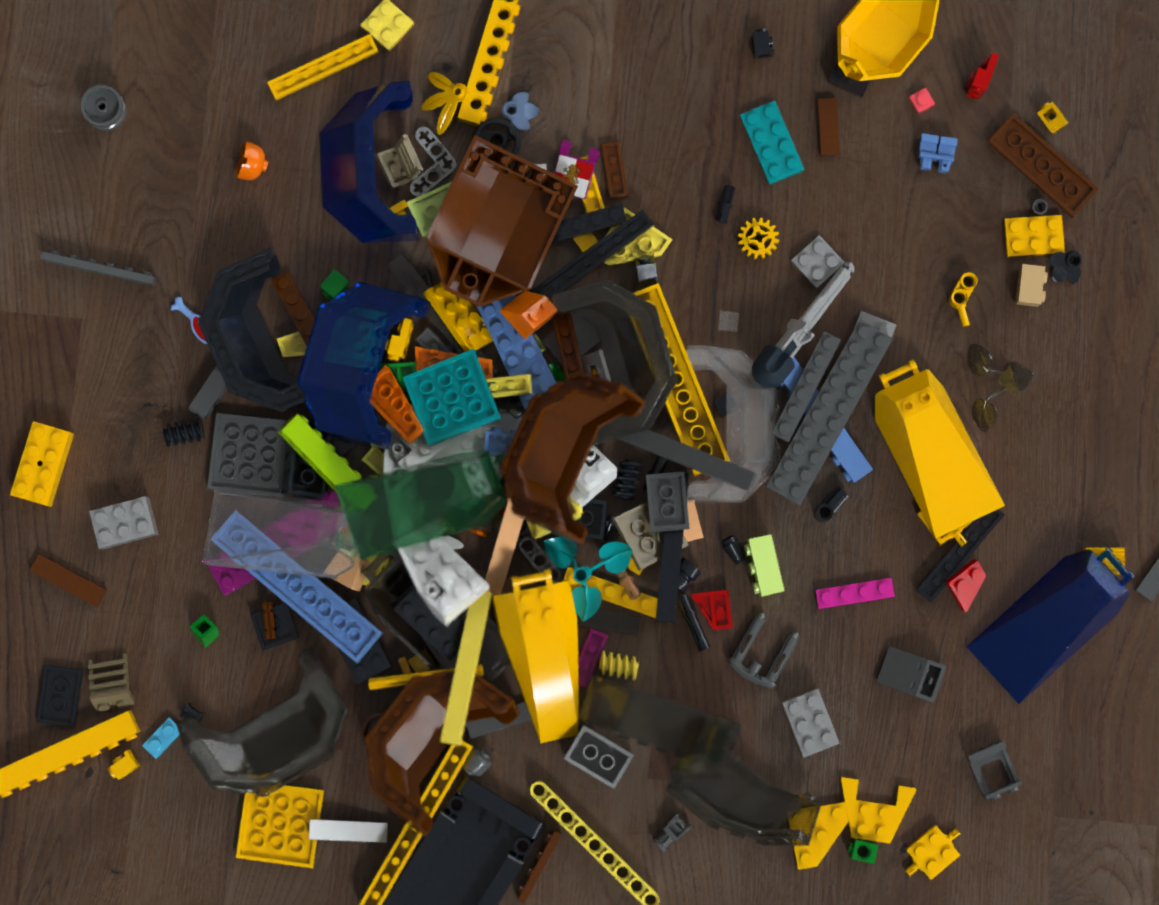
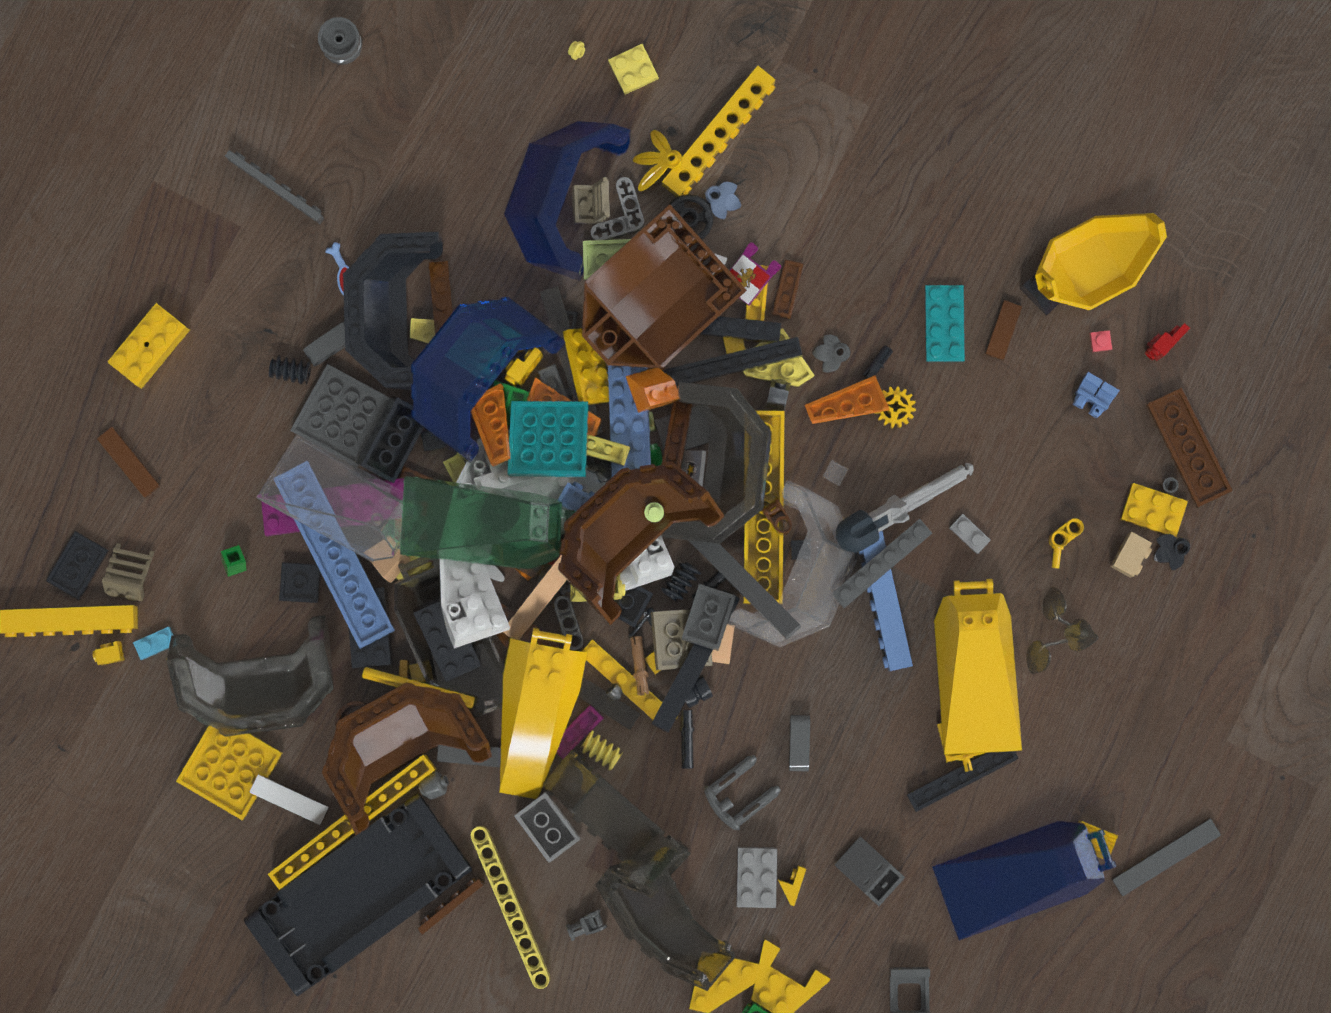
camera: 25 degrees right, 0 degrees up
(123, 522) = (201, 430): light grey brick -> none
(190, 711) = (190, 630): black bush -> none
(251, 162) = (454, 146): orange cylinder -> none
(268, 620) = (296, 575): reddish brown axle -> none
(316, 452) = (403, 438): lime brick -> none
(323, 67) = (557, 84): yellow plate -> none
(327, 27) = (576, 50): none -> light yellow plate
(334, 285) = (484, 290): green brick -> none
(399, 208) = (573, 243): yellow tile -> none
(465, 670) = (456, 696): light yellow tile -> none
(578, 424) = (654, 512): none -> yellowish green plate
(587, 600) = (595, 677): teal plant -> none
(608, 606) = (614, 692): none -> dark grey hinge
(676, 214) = (828, 353): none -> dark grey plate
(692, 382) = (777, 515): none -> reddish brown piece
(715, 608) = (713, 734): red wing -> none
(716, 249) = (851, 401): none -> orange wing
(733, 549) = (752, 686): black cone -> none
(762, 43) = (973, 228): black brick -> none
(764, 565) = (773, 713): yellowish green brick -> none
(798, 583) = (799, 743): none -> dark grey beam
(817, 262) = (941, 451): light grey plate -> none
(829, 412) = (893, 596): dark grey plate -> none
(831, 503) = (861, 681): black piece -> none
(847, 721) = (792, 889): none -> yellow slope
(854, 593) = (848, 774): dark pink plate -> none
(966, 584) = (956, 808): wing -> none
(1055, 124) = (1220, 413): yellow brick -> none

